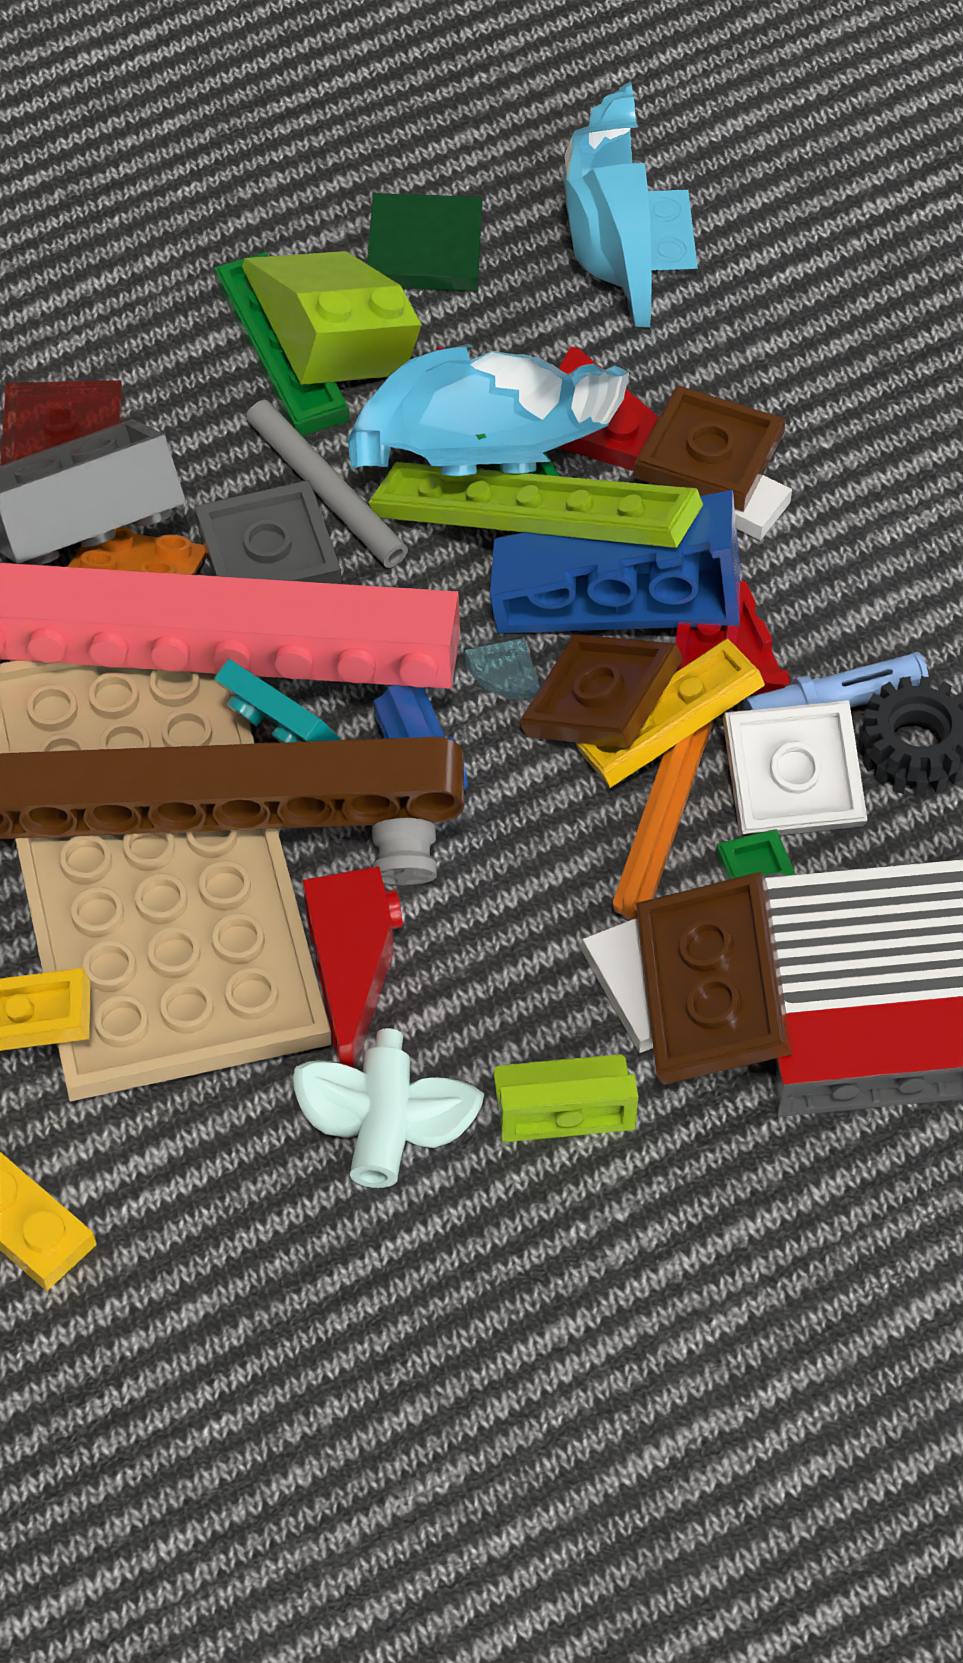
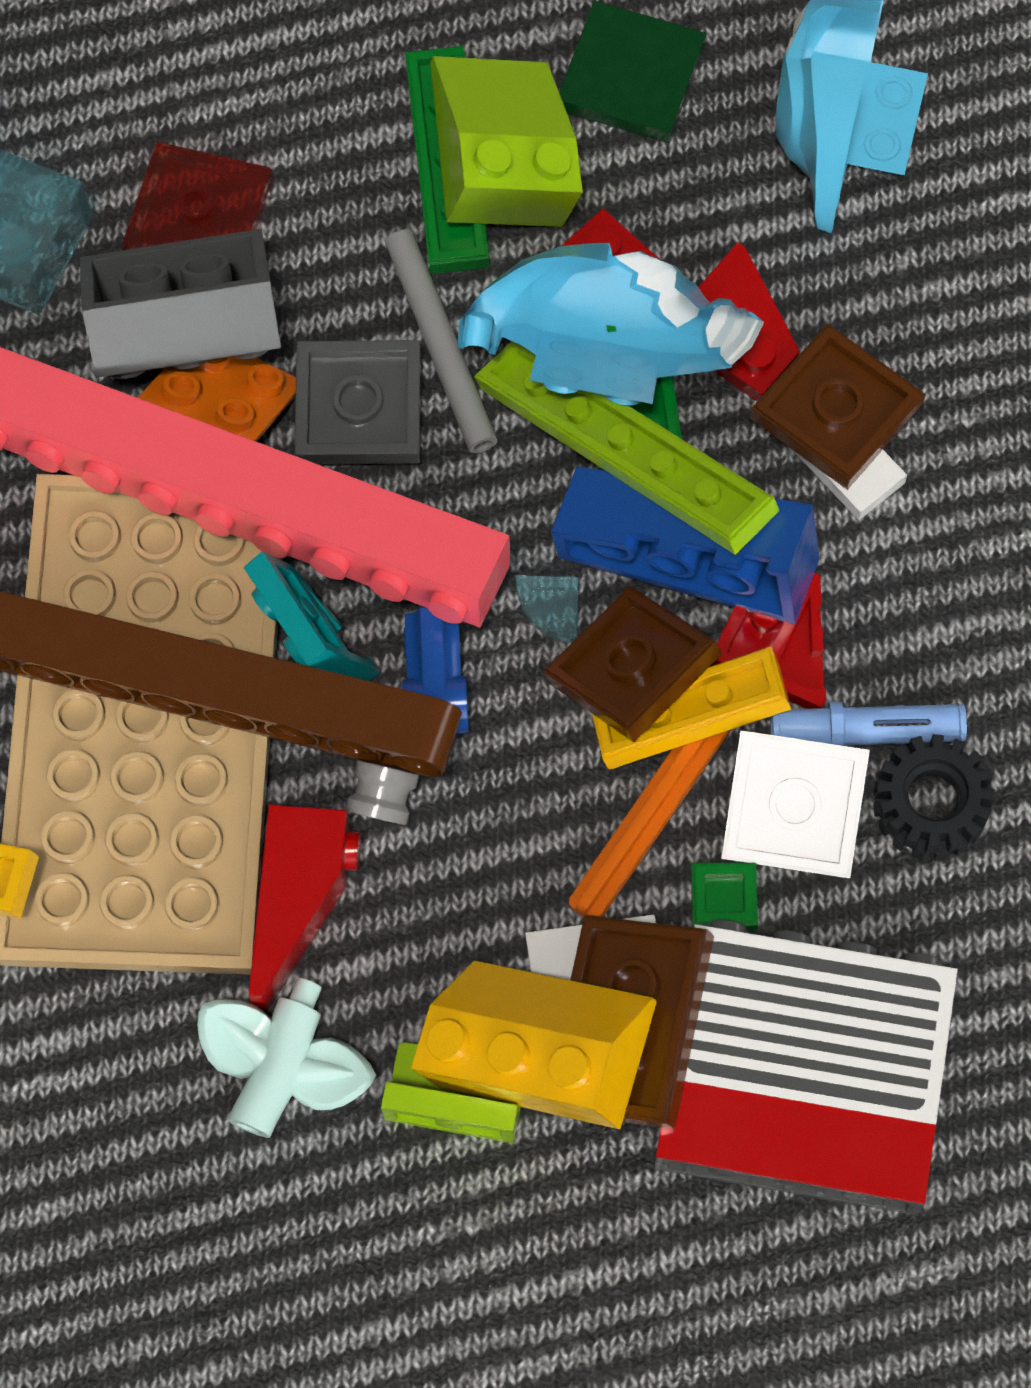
camera: 20 degrees right, 15 degrees up
(635, 1017) = (536, 1042): none -> yellow slope

